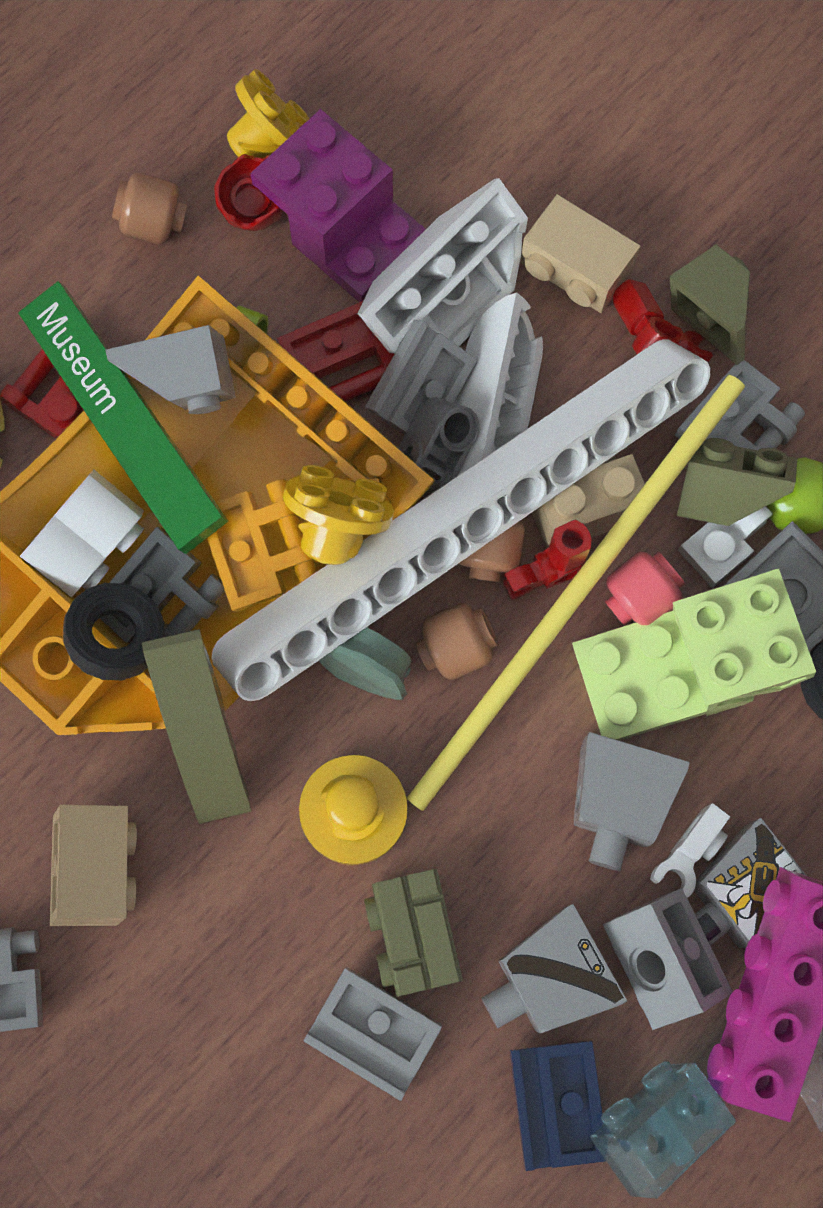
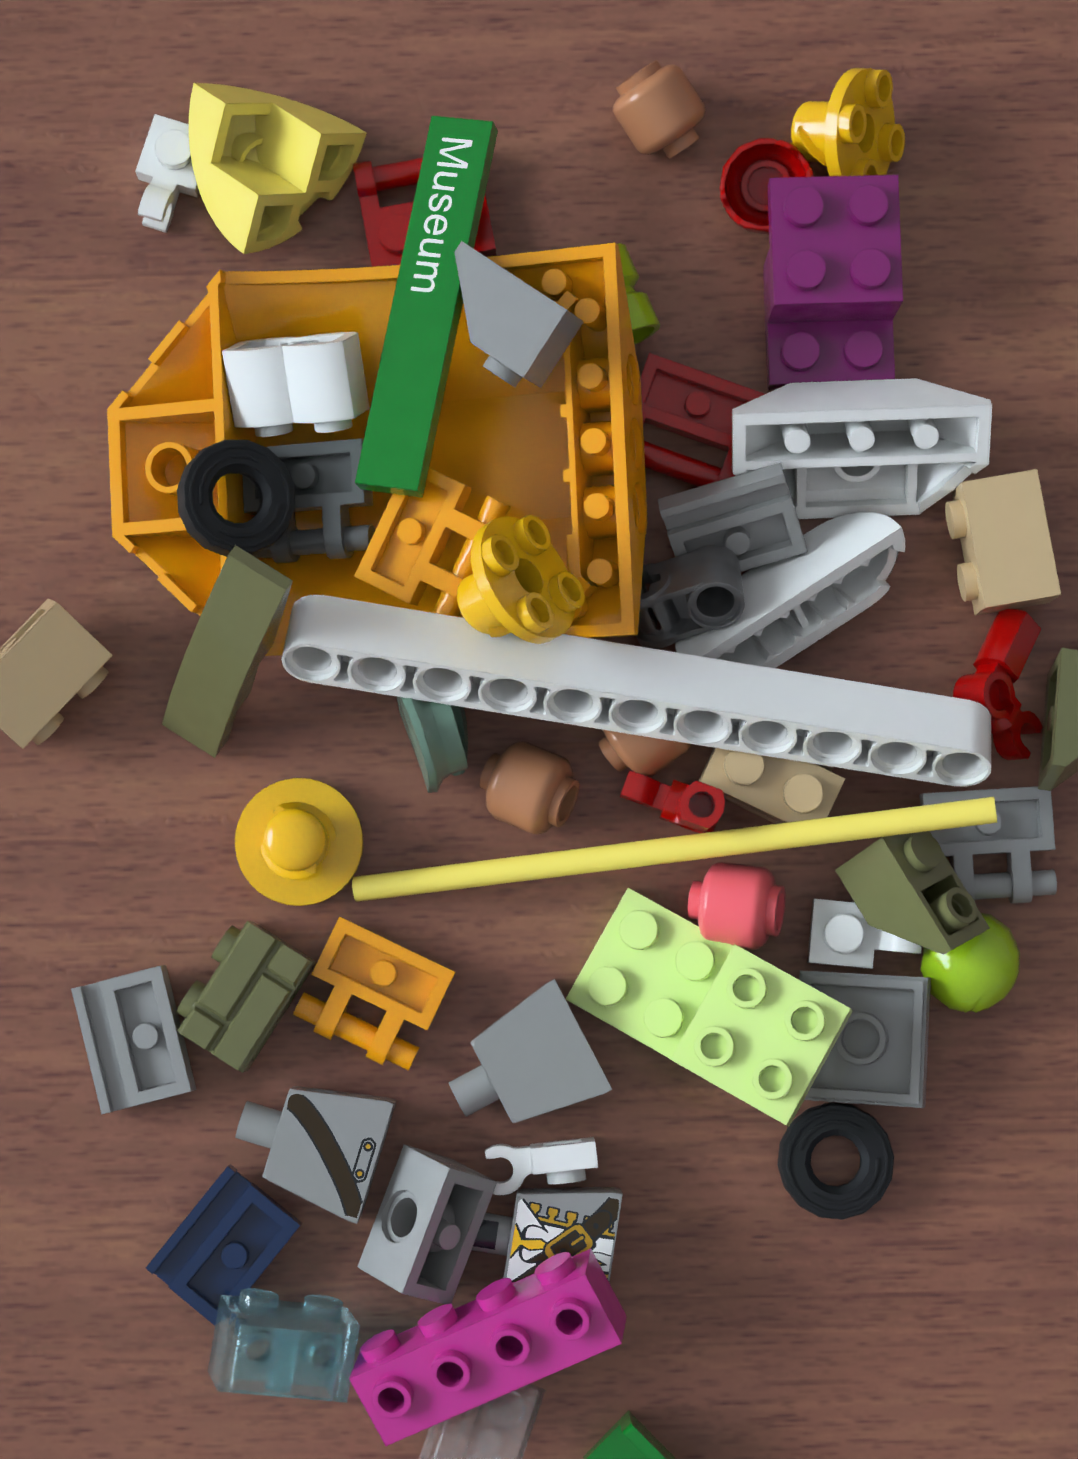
camera: 45 degrees right, 10 degrees up
(483, 837) = (383, 975): none -> light orange plate

